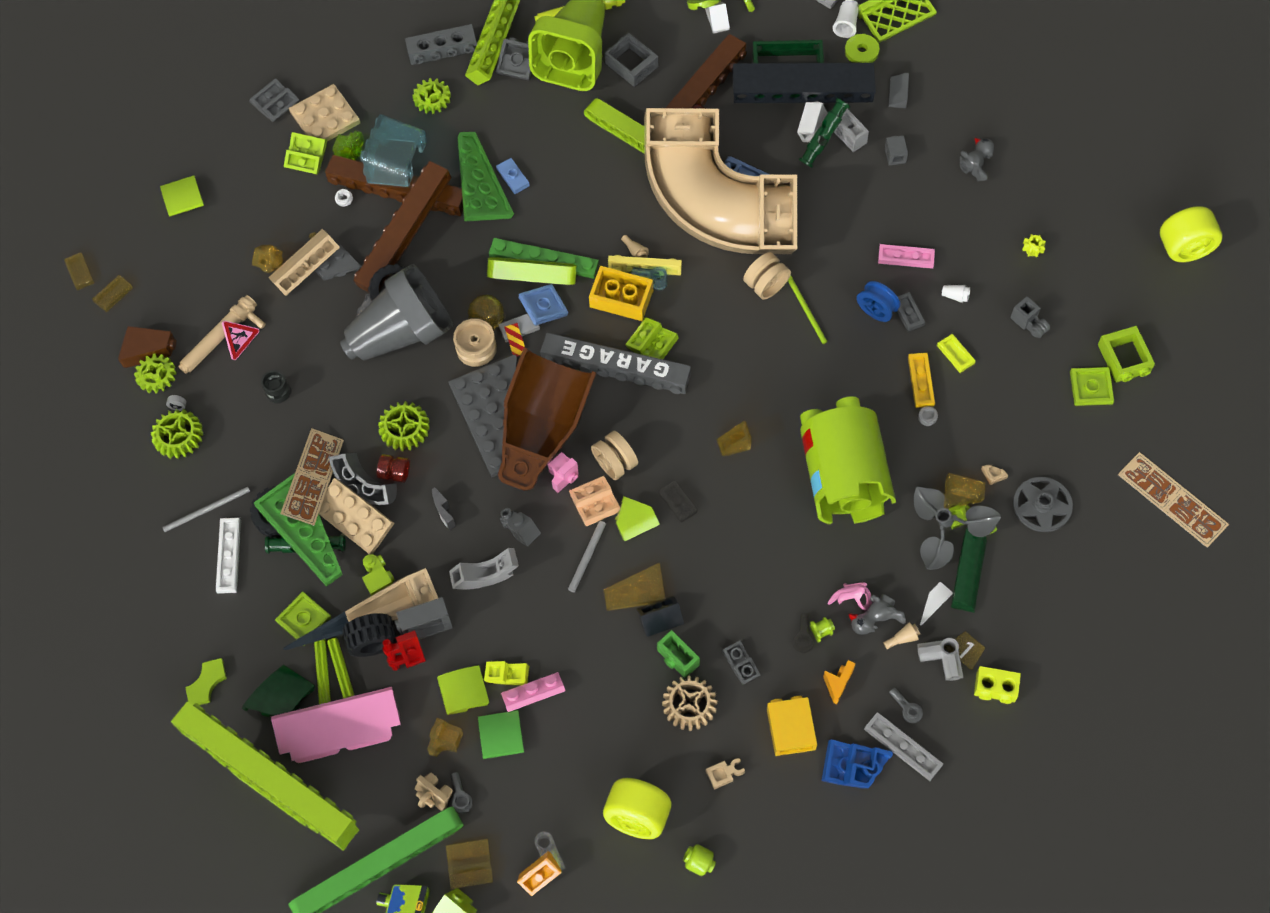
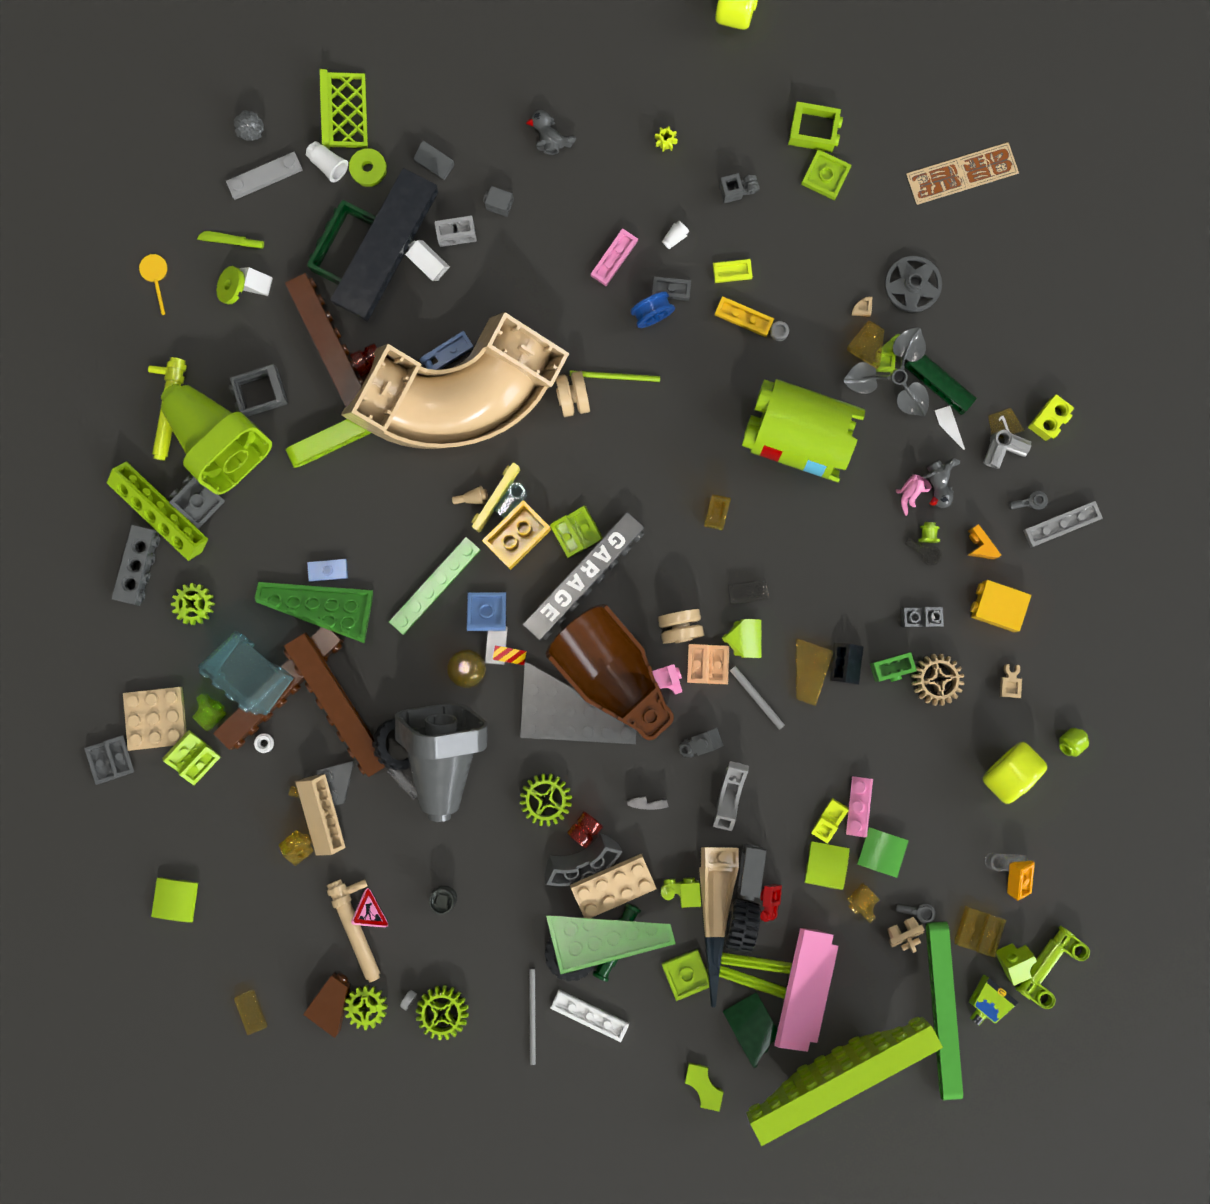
camera: 65 degrees left, 20 degrees up
(79, 271) = (206, 1035): clear yellow tile -> none
(311, 477) = (559, 908): sticker -> none
(475, 342) = (507, 694): tan wheel -> none
(531, 270) = (446, 605): beam -> none
(828, 126) = (445, 244): dark green piece -> none
(853, 764) = (1056, 573): blue slope -> none
(906, 634) = (969, 466): tan cone -> none

